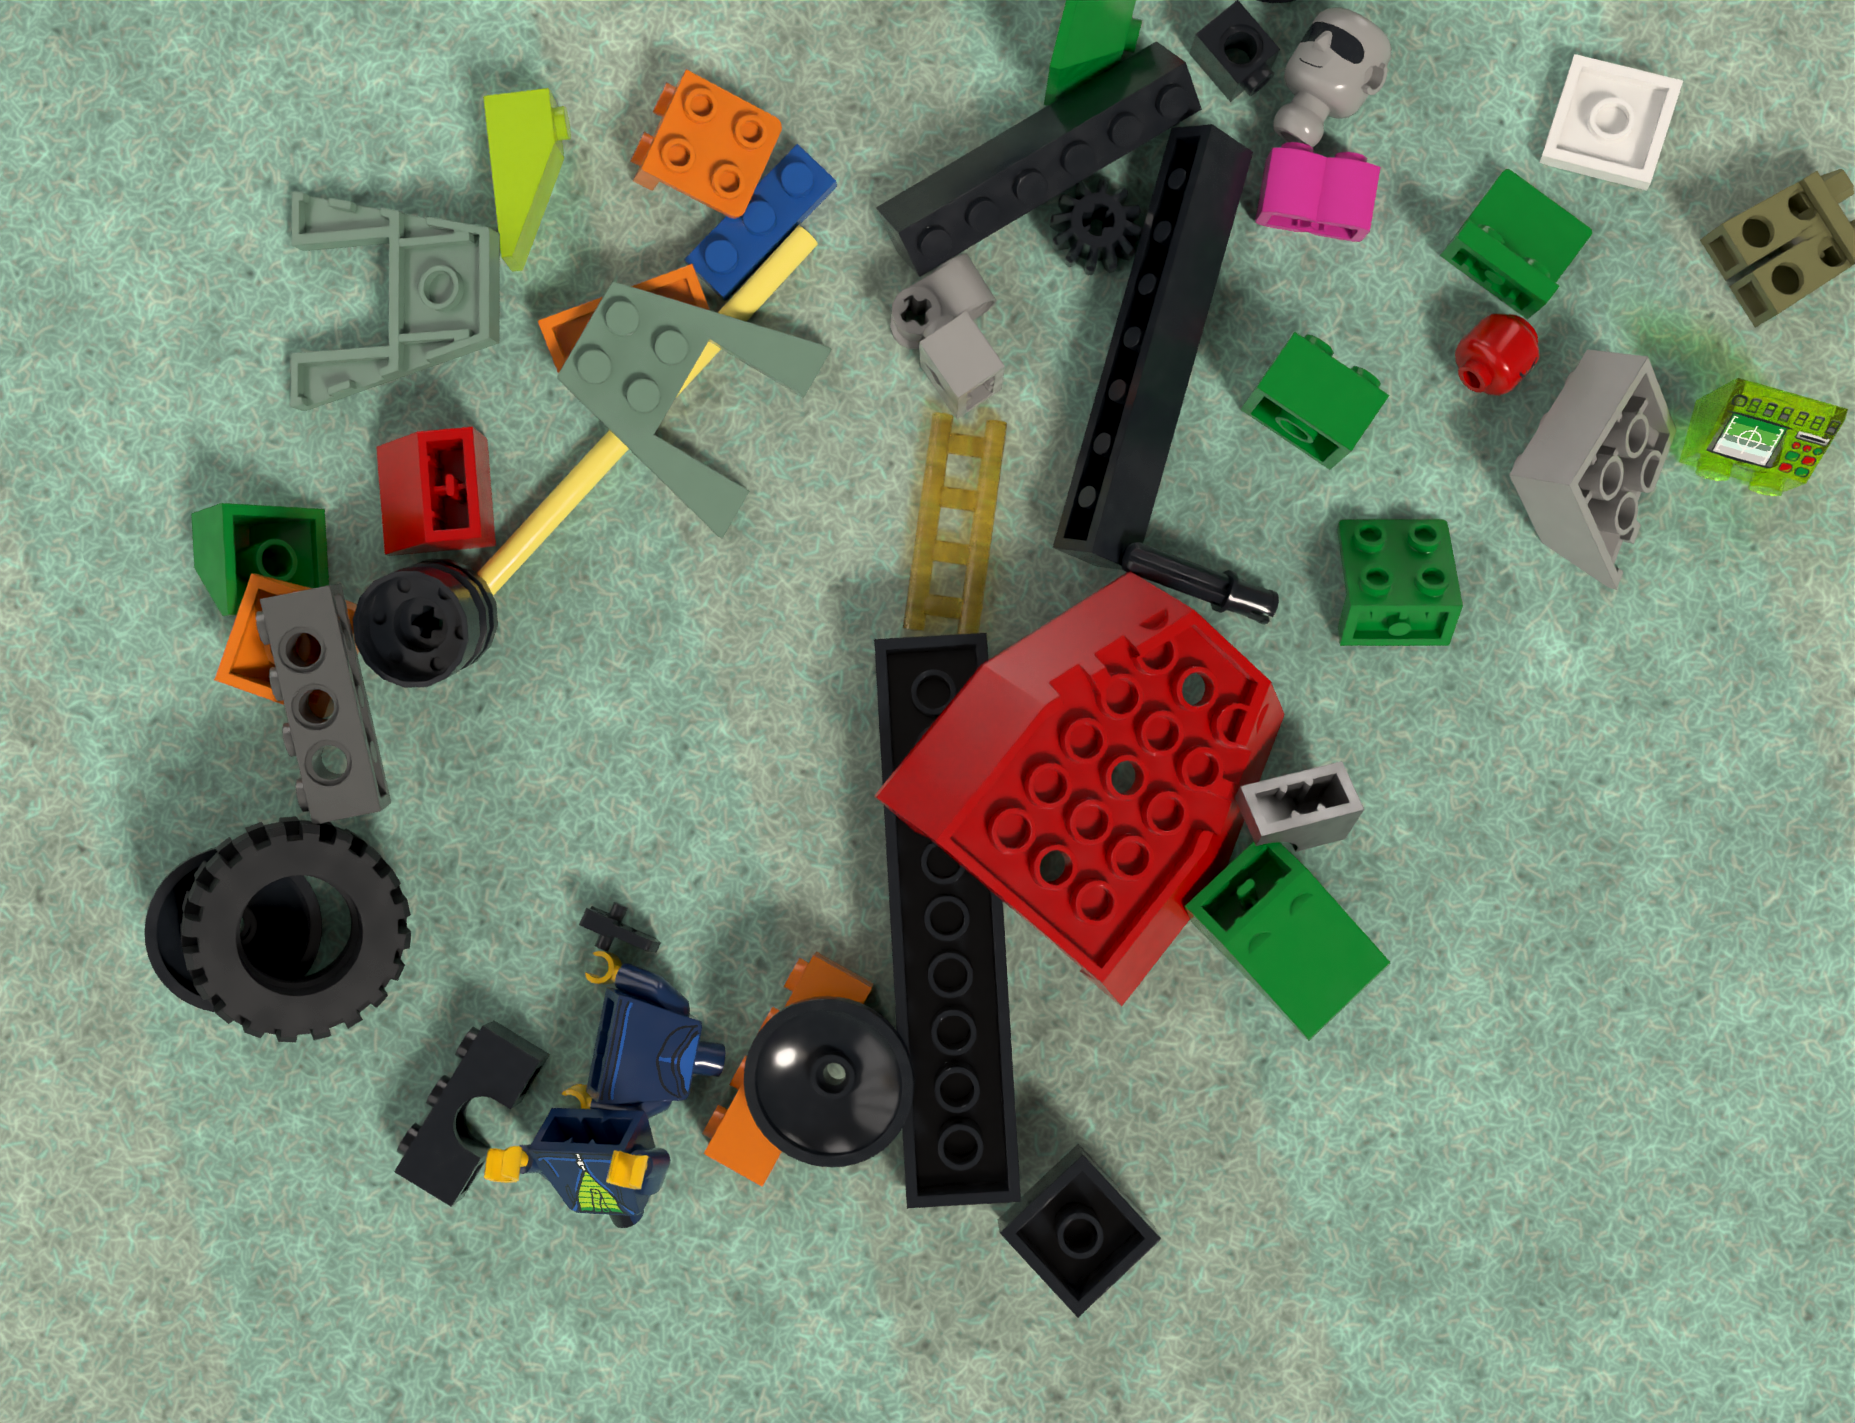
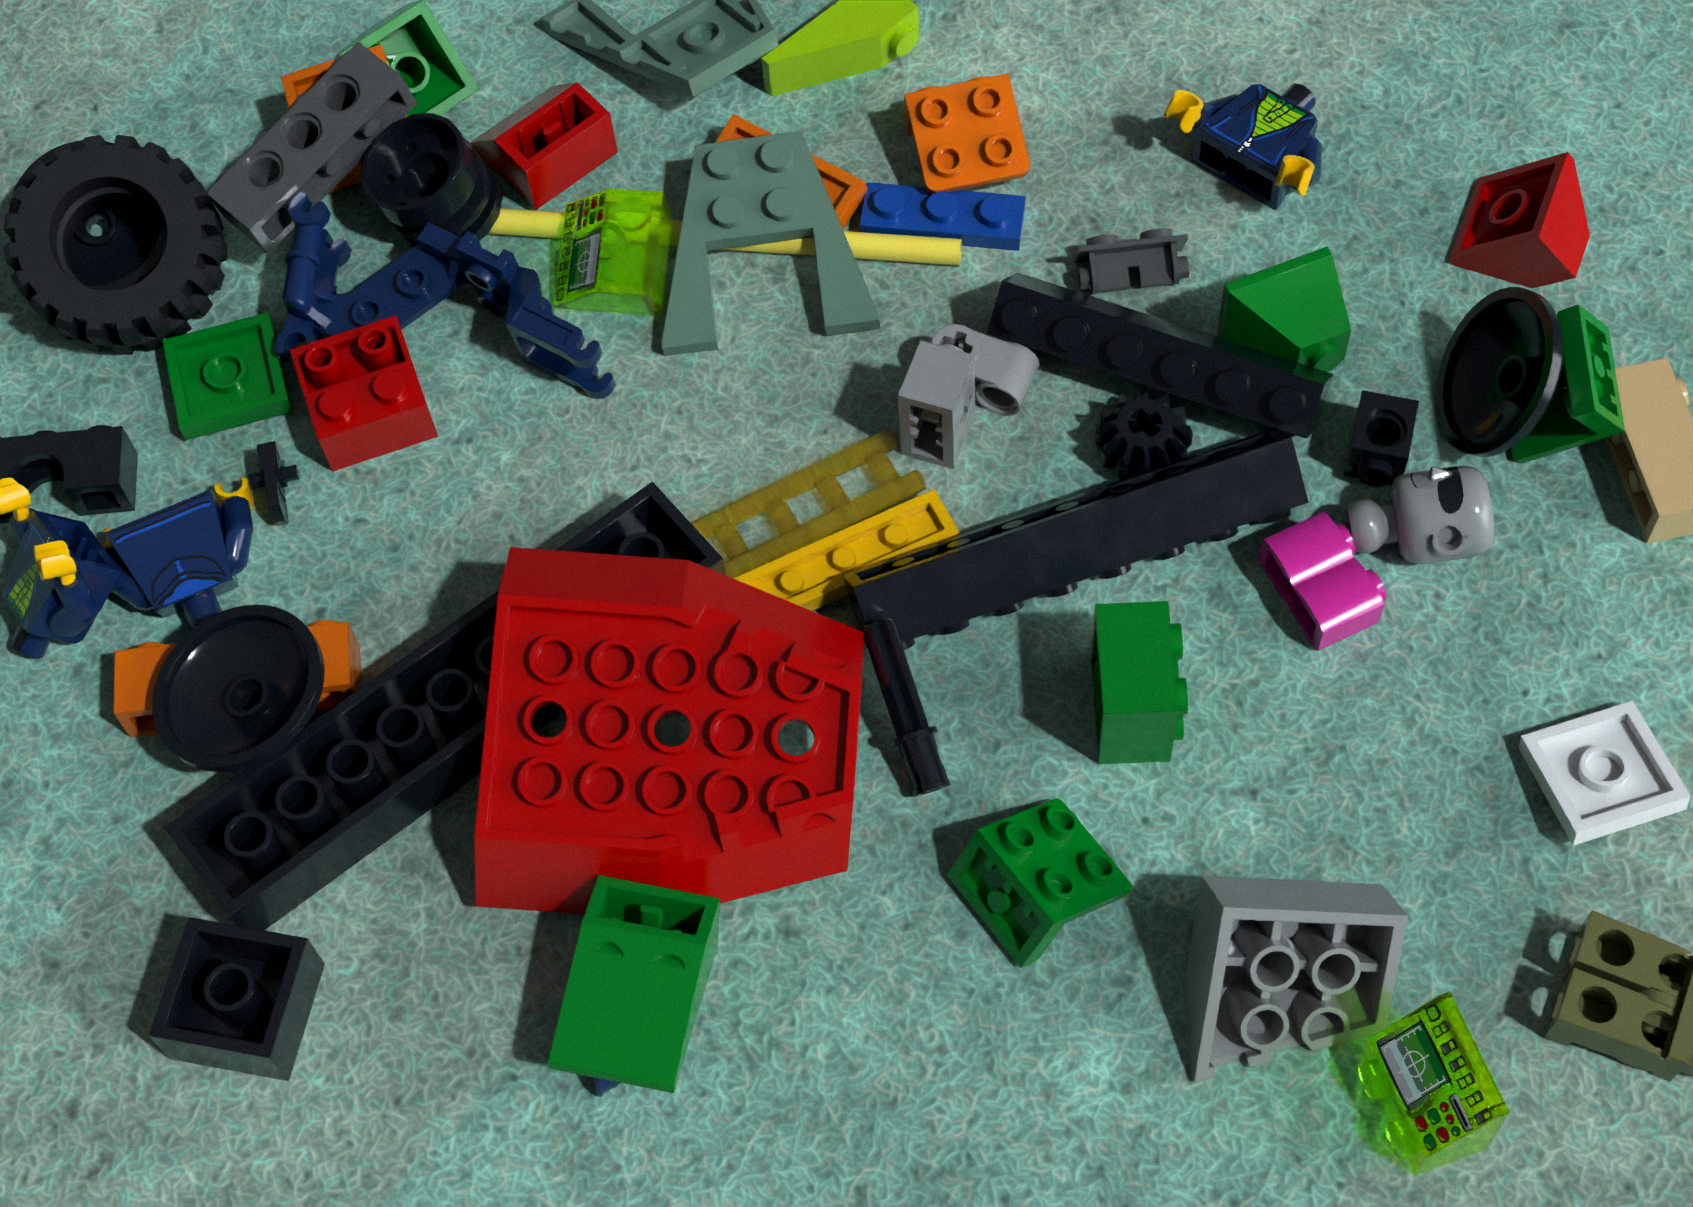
camera: 55 degrees right, 25 degrees down
(478, 905) = (226, 376): none -> green plate
(519, 711) = (418, 284): none -> dark blue piece
(589, 807) = (363, 393): none -> red slope
(604, 518) = (614, 253): none -> clear neon green slope
(910, 124) = (1152, 254): none -> dark grey hinge
(1030, 532) = (815, 572): none -> yellow plate
(1301, 807) = (762, 915): flat silver arch -> none
(1497, 354) = (1312, 816): red head -> none
(1517, 244) = (1425, 768): green bracket -> none

